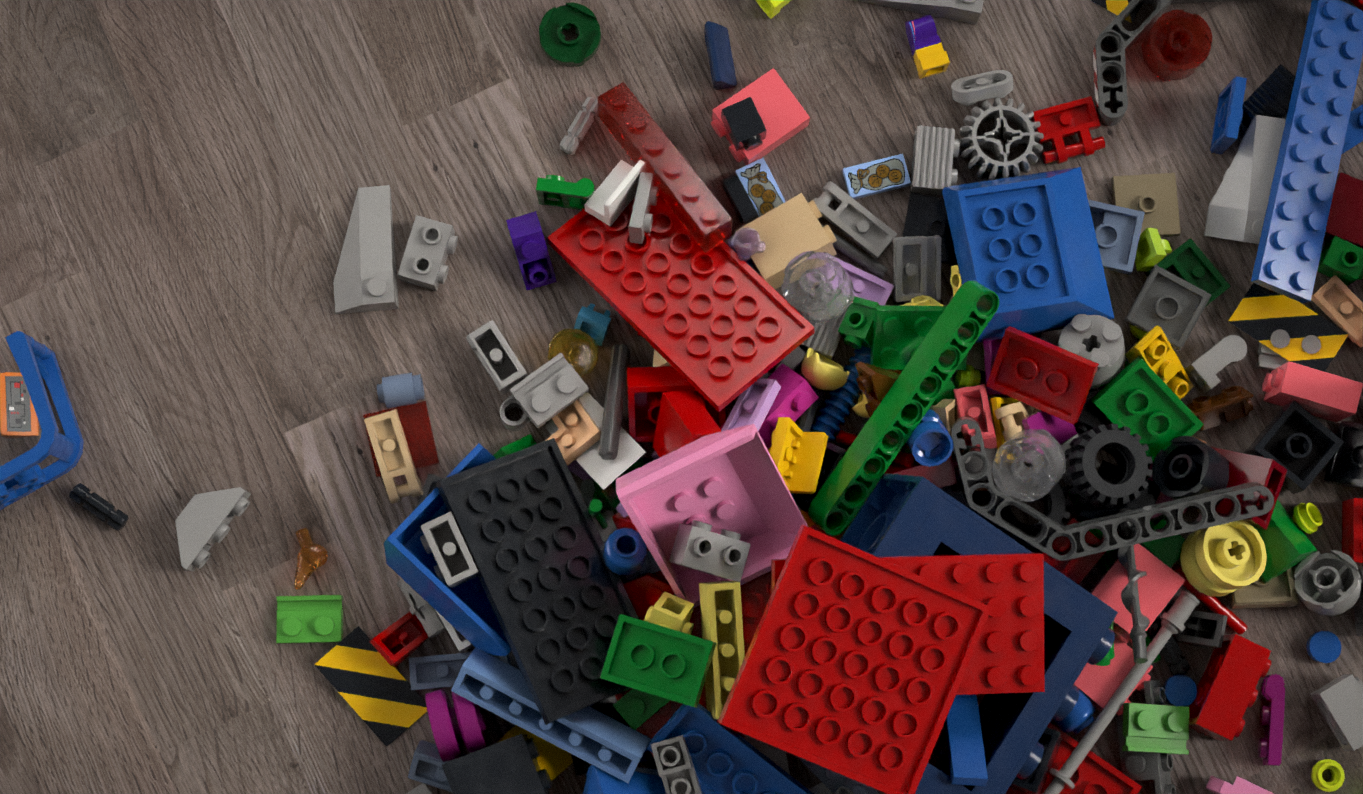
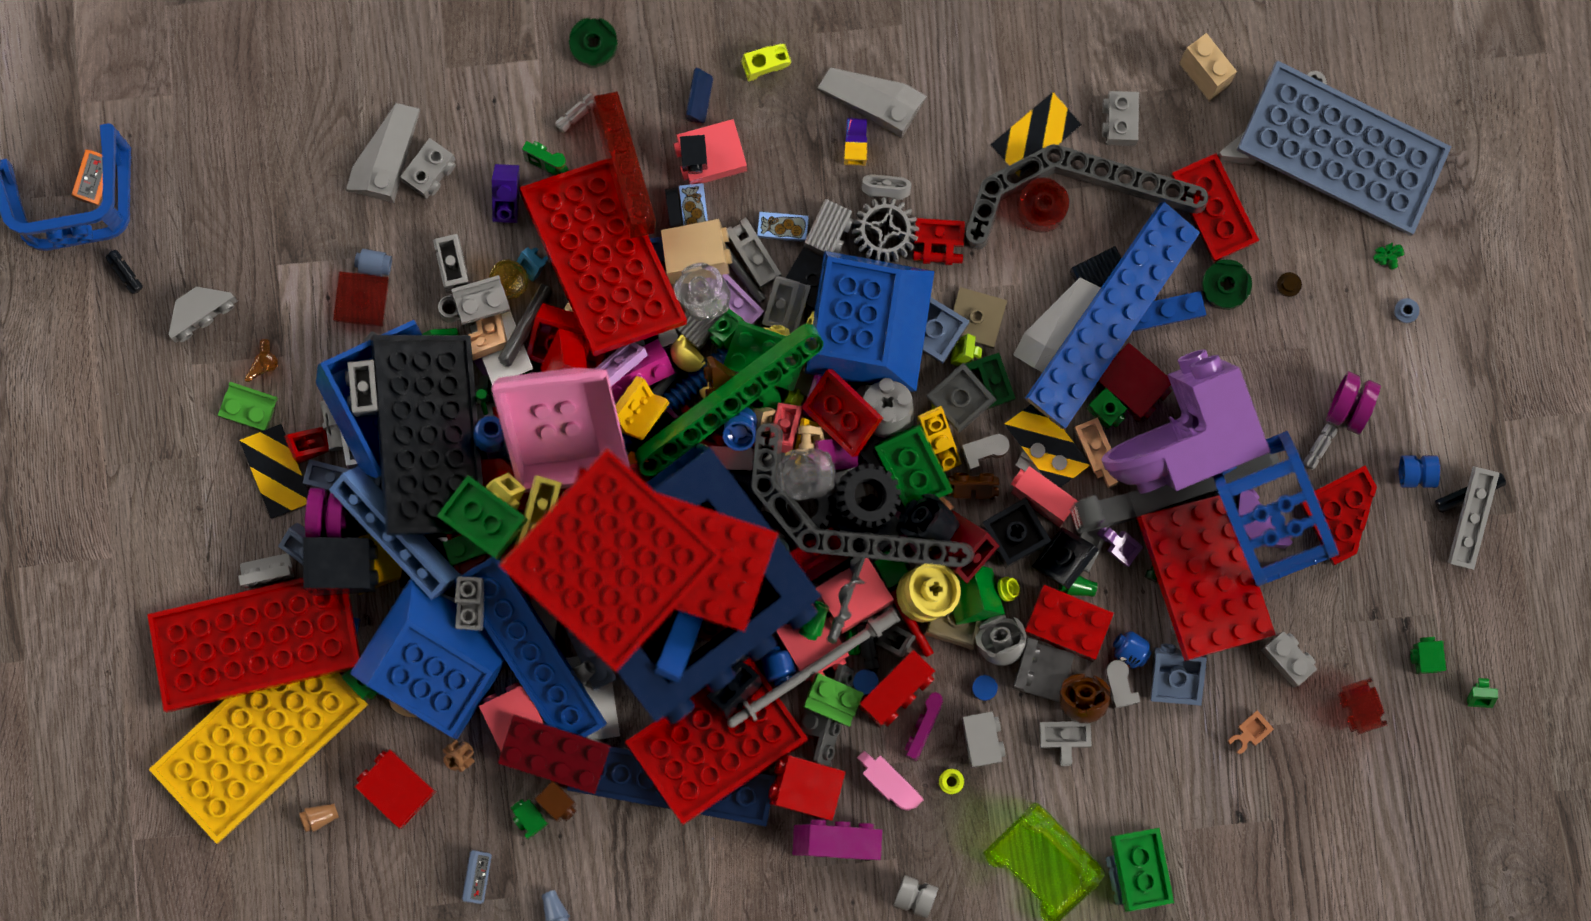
camera: 20 degrees right, 0 degrees up
(393, 455) = (350, 308): tan plate -> none
(615, 192) = (583, 171): white panel -> none
(640, 219) = (592, 196): light grey plate -> none
(710, 552) = (549, 454): light grey brick -> none
(746, 236) = (666, 237): clear purple plate -> none
(1228, 115) = (1061, 271): blue plate -> none

